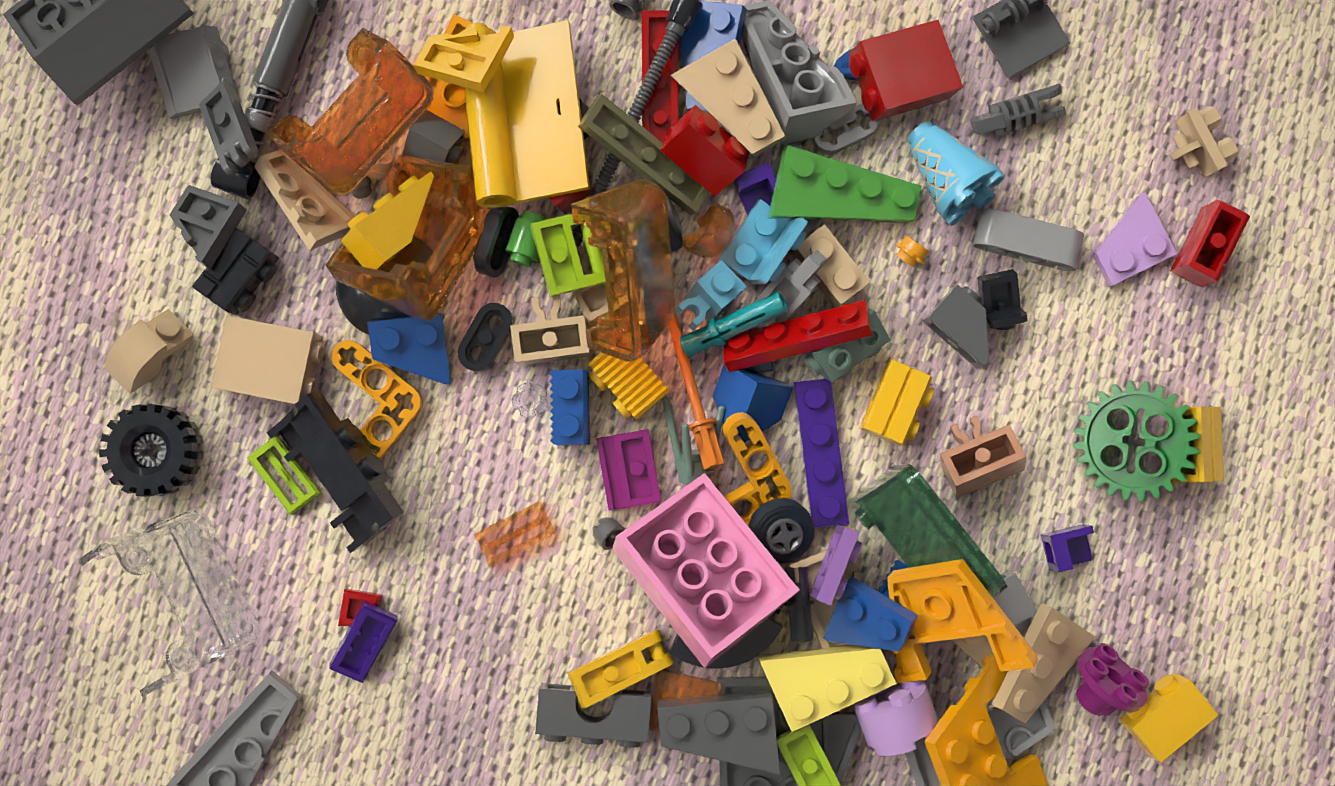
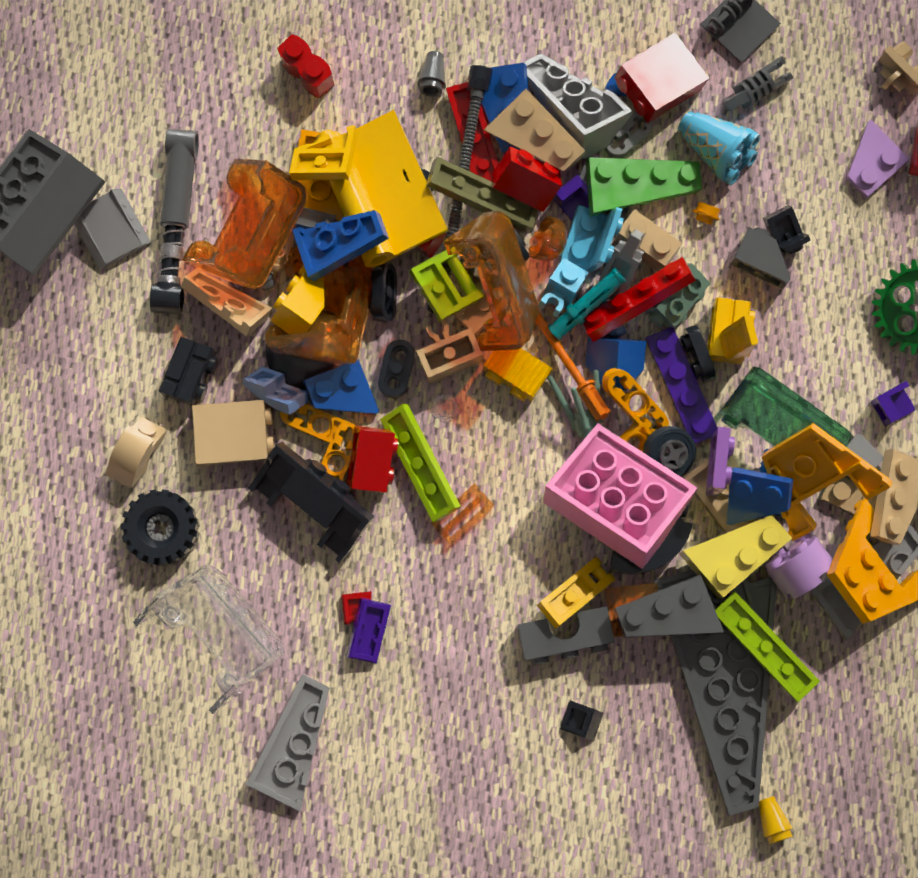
camera: 15 degrees left, 5 degrees down
(206, 222) = (155, 338): dark grey wing -> none
(228, 128) = (154, 261): dark grey hinge -> none
(303, 499) = (288, 534): lime tile -> none
(331, 324) = (271, 388): none -> medium blue slope
(422, 440) = (371, 459): none -> red brick
(446, 167) = (336, 243): none -> blue wing
(480, 459) = (421, 463): none -> lime plate
(521, 241) = (405, 288): bright green brick -> none
(570, 407) = (478, 403): blue brick -> none
(607, 532) = (534, 493): dark grey hinge -> none
(628, 469) = (537, 439): magenta plate -> none
(800, 607) = (701, 505): black axle -> none
(852, 436) = (702, 366): none -> black plate
(903, 421) = (739, 338): none -> yellow slope
(982, 459) = (807, 354): nougat brick -> none
(1030, 238) = (794, 178): light grey beam -> none

